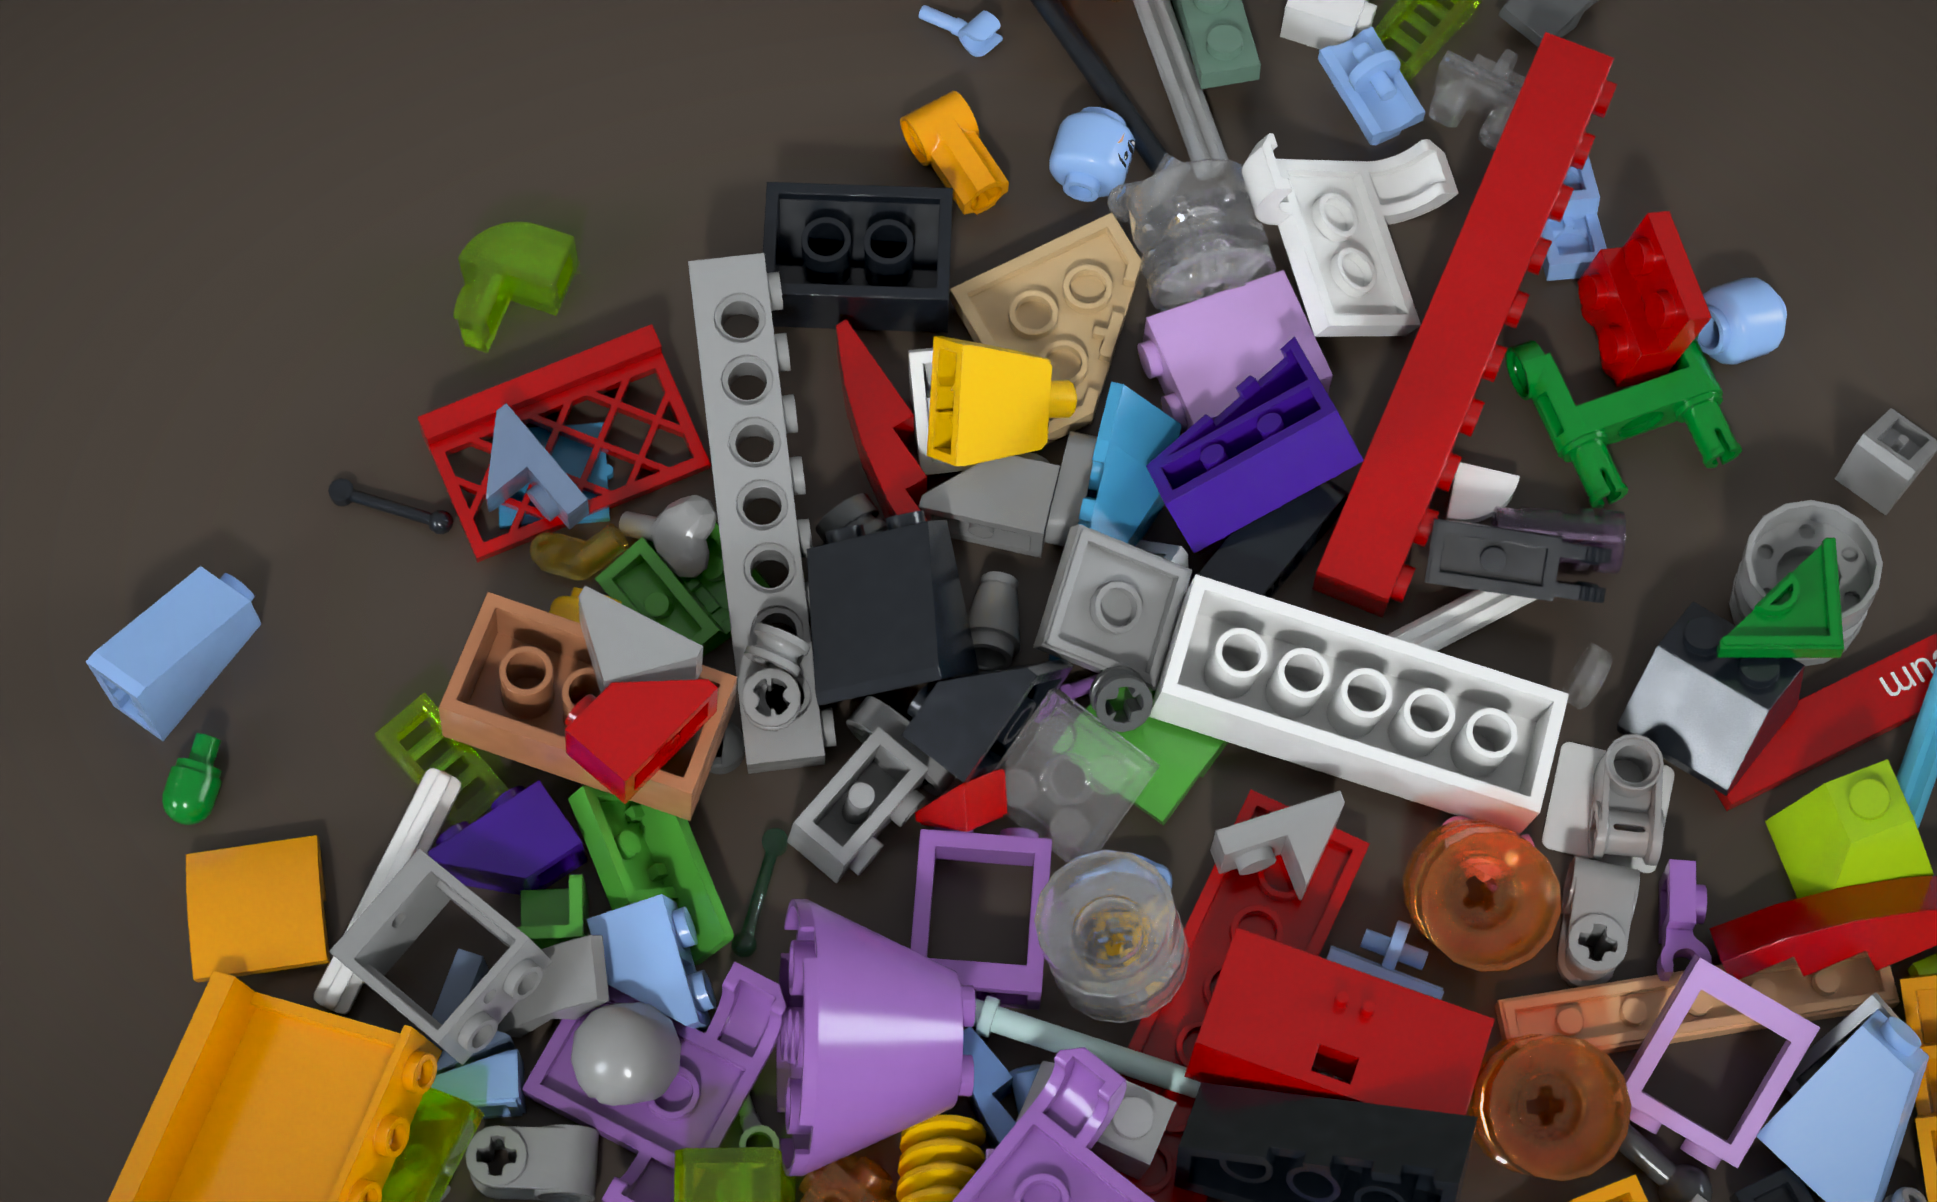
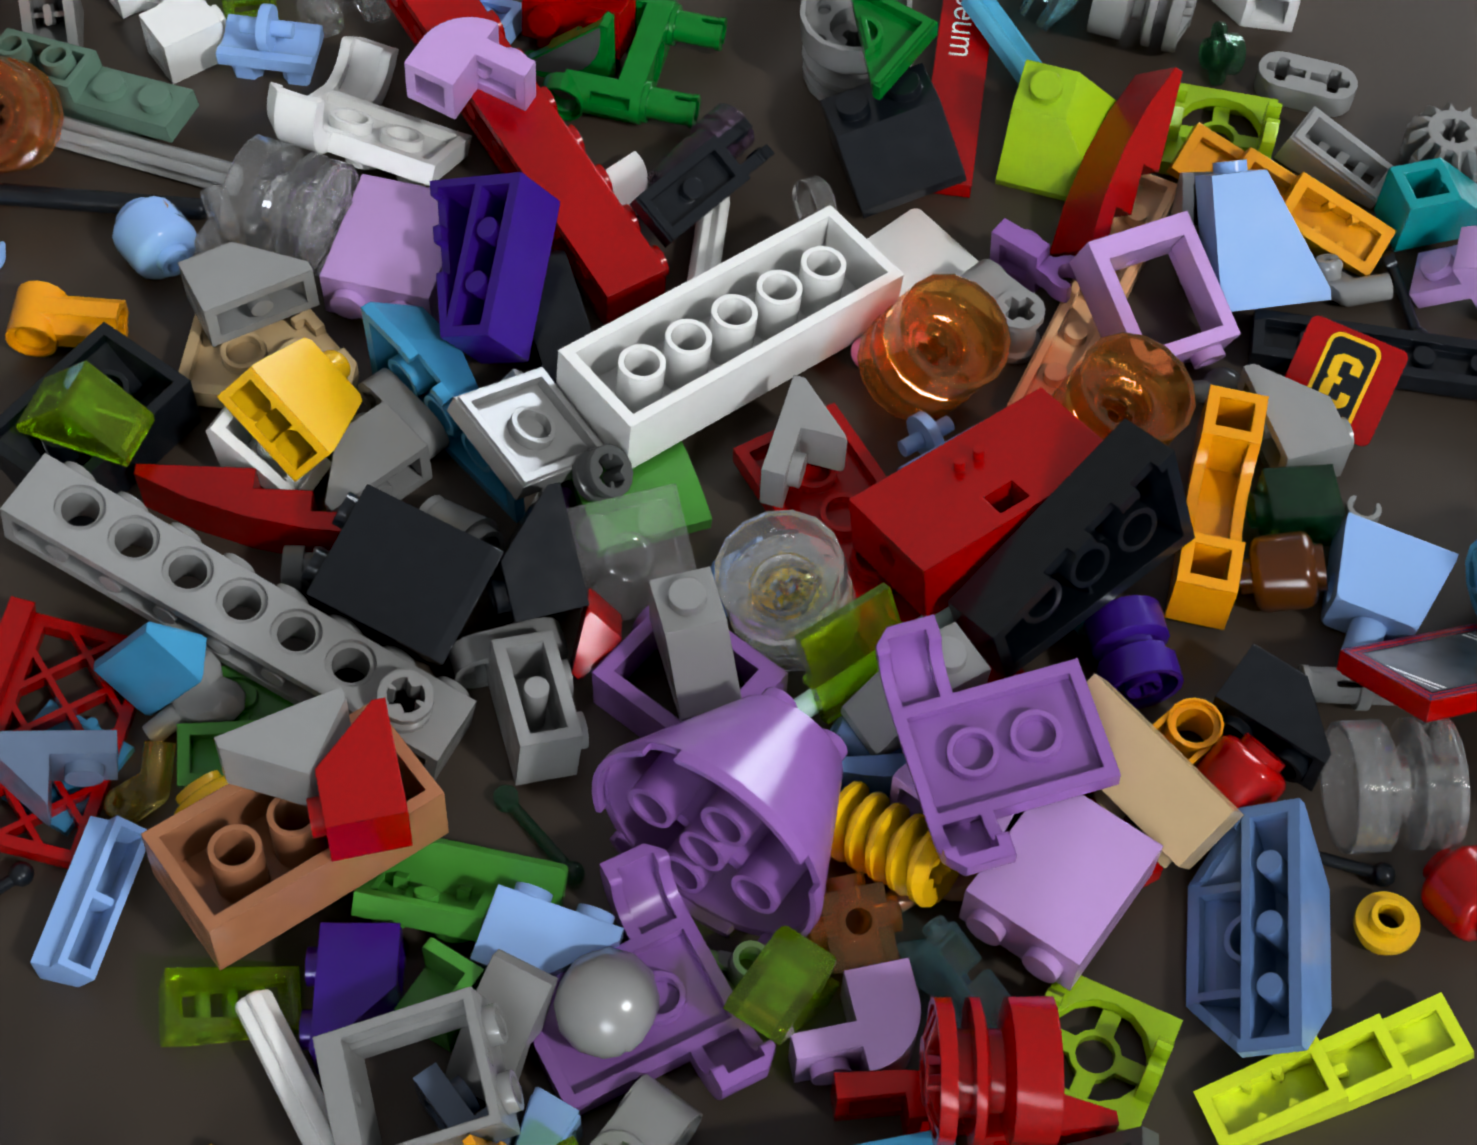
camera: 55 degrees left, 10 degrees down
(449, 590) = (89, 902): none -> light blue piece
(665, 486) = (154, 665): none -> dark azure slope
(777, 649) = (370, 663): light grey bush -> none
(843, 252) = (87, 414): none -> clear neon green slope
(992, 896) = (693, 641): none -> light grey slope
(1078, 268) = (245, 289): none -> light grey slope
(1103, 1024) = (842, 649): none -> clear neon green piece
(1447, 261) = (466, 57): none -> lavender brick
(1579, 348) = (580, 49): none -> tile
(1626, 814) = (924, 233): light grey piece -> none

